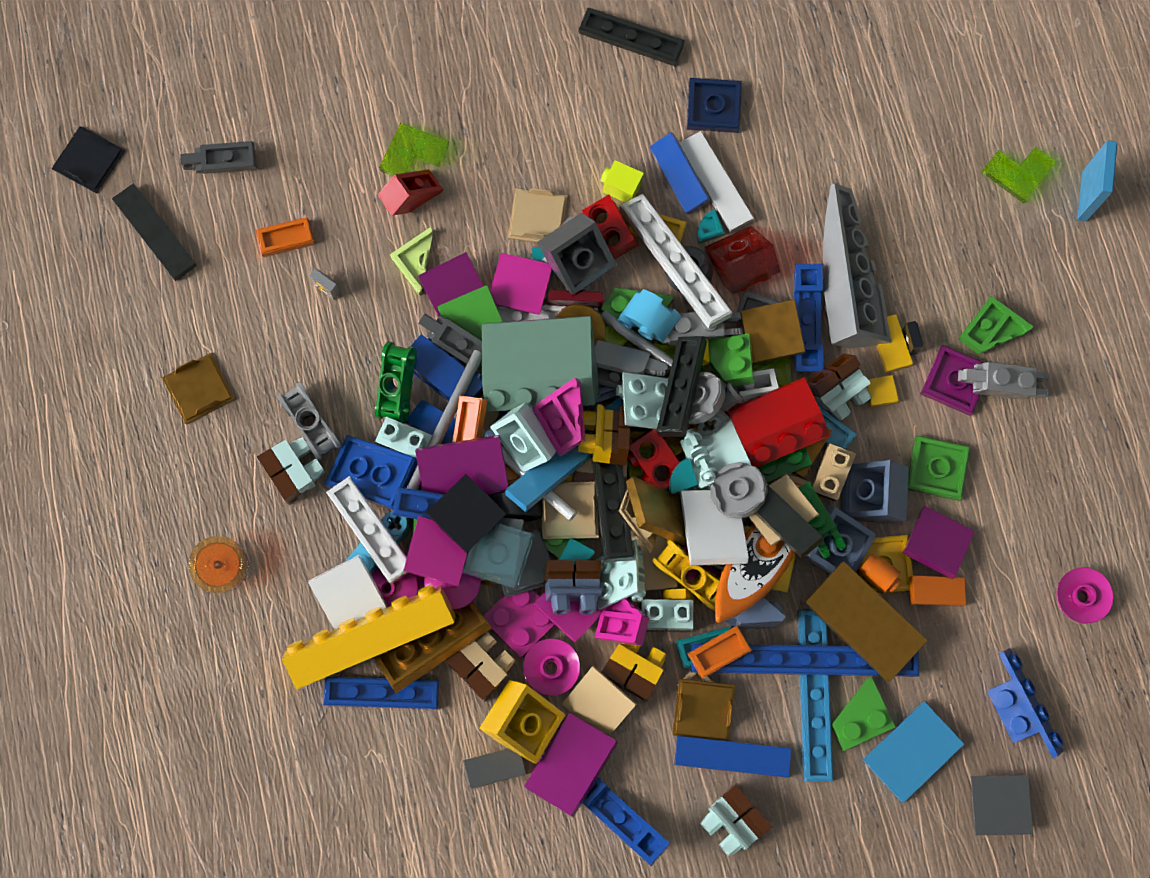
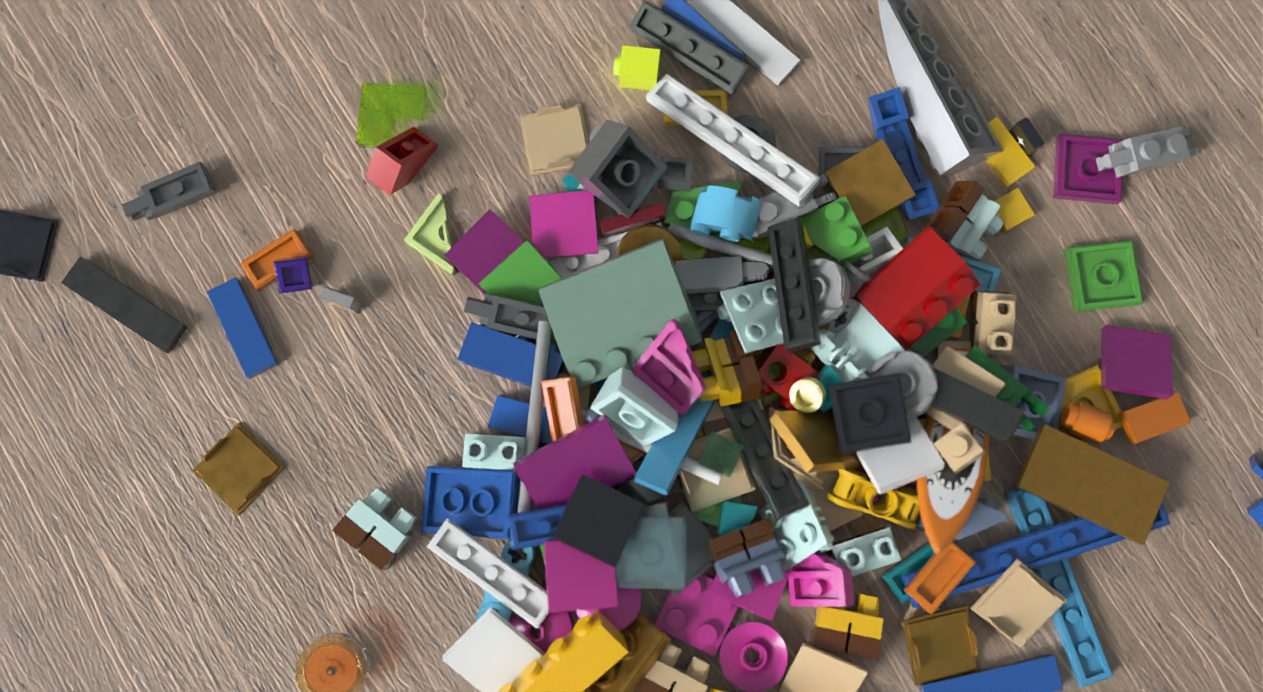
camera: 10 degrees left, 5 degrees up
(240, 280) = (242, 328): none -> blue tile
(294, 252) = (292, 274): none -> dark purple tile
(319, 435) = (360, 451): light grey piece -> none
(398, 364) = (459, 368): green piece -> none
(579, 496) = (721, 454): none -> clear green tile
(614, 225) = (647, 121): red brick -> none
(623, 274) = (677, 174): none -> dark grey tile
(663, 475) = (807, 394): none -> light yellow tile
(668, 179) = (689, 47): none -> pearl dark grey tile
(678, 594) = (866, 525): yellow tile -> none
(704, 502) = (870, 414): none -> black tile
(709, 228) = (754, 87): teal tile -> none
(743, 259) = (806, 110): clear red slope -> none
(764, 550) = (959, 448): none -> tan plate
(776, 697) = (1018, 603): none -> tan piece
(862, 717) = (1119, 591): bright green wing -> none
(876, 492) = (1049, 329): sand blue slope -> none
(913, 752) = (1189, 610): dark azure tile -> none
(993, 327) = (1110, 94): bright green wing -> none

